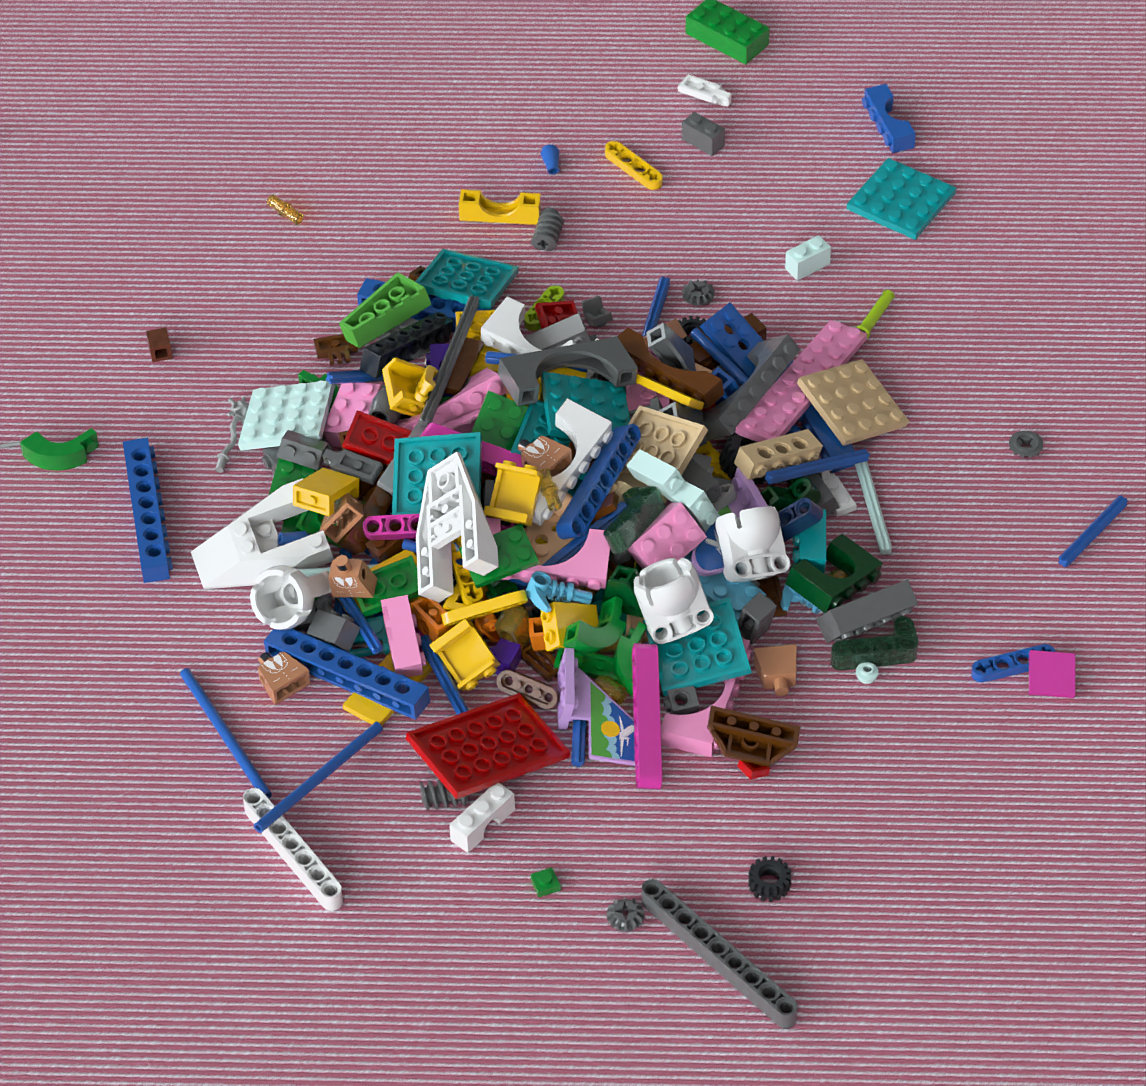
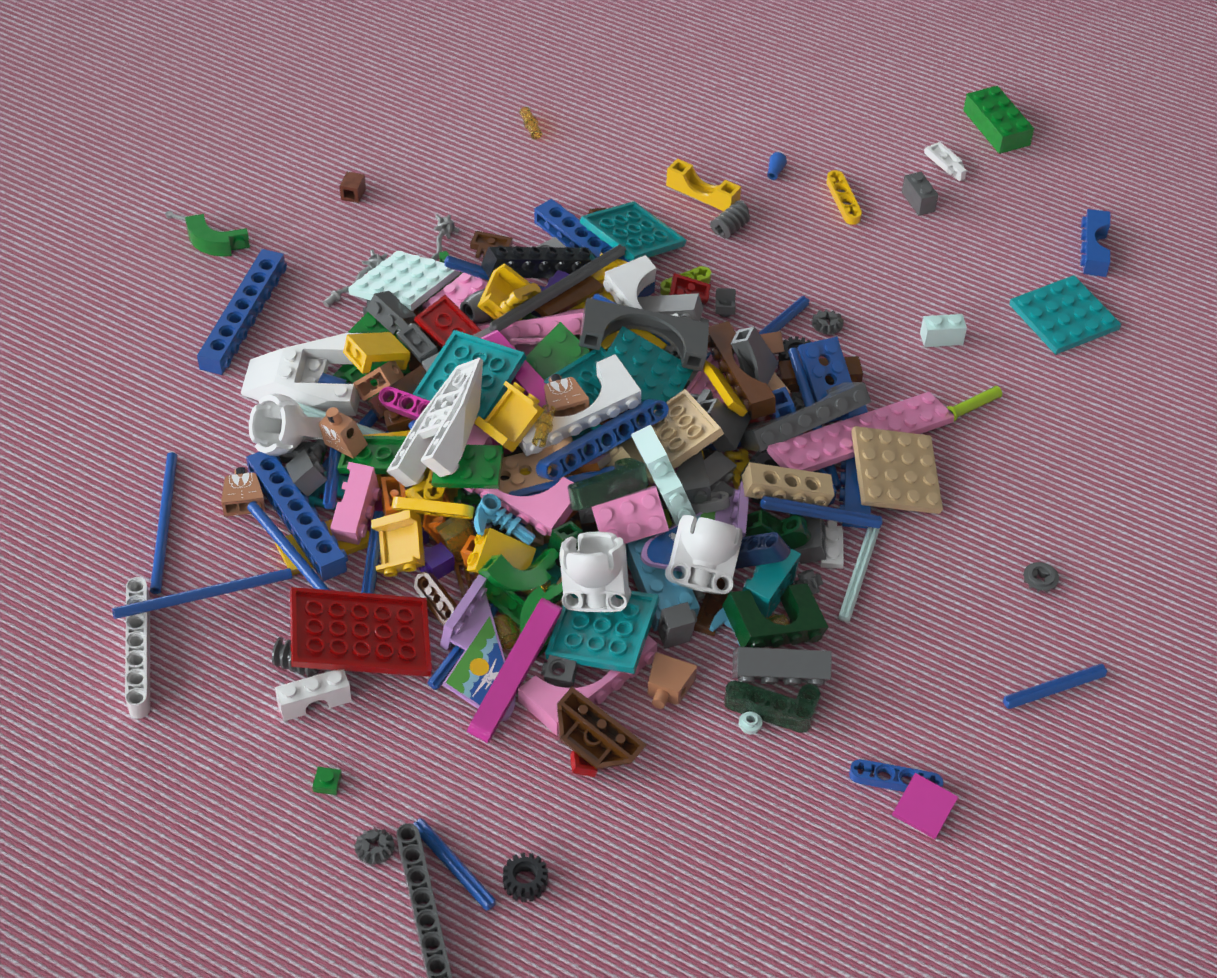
camera: 25 degrees right, 0 degrees up
(281, 347) = (446, 227): none -> light grey piece
(361, 704) = (286, 546): none -> blue piece
(384, 310) = (541, 227): bright green wedge -> none
(709, 899) = (455, 865): none -> blue axle
(837, 528) = (812, 579): none -> dark grey gear

